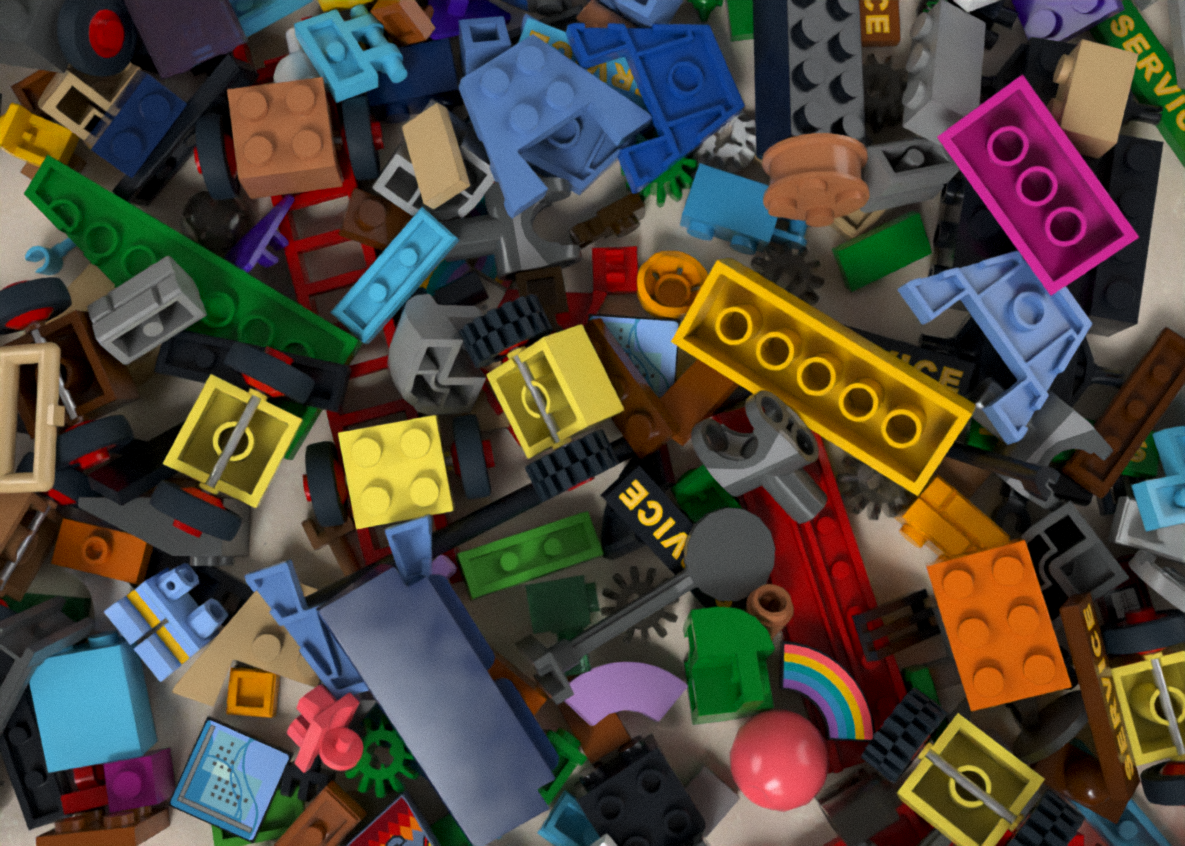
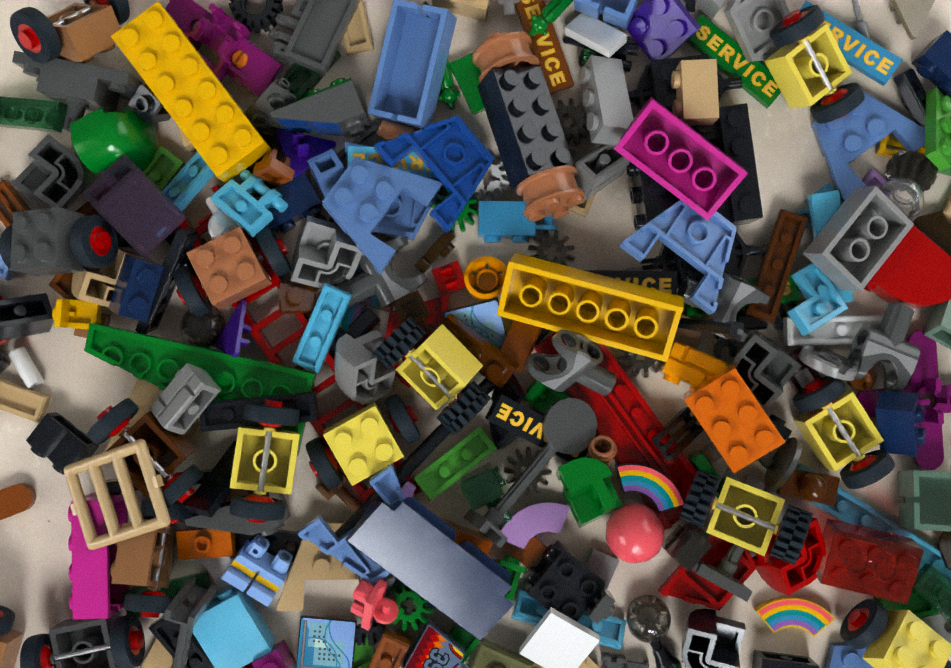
camera: 25 degrees left, 5 degrees up
(53, 256) = (111, 378): medium azure hand -> none
(252, 692) = (320, 593): light orange tile -> none
(435, 156) = (323, 252): tan tile -> none
(882, 250) = (602, 216): green tile -> none
(1100, 696) = (803, 440): reddish brown tile -> none

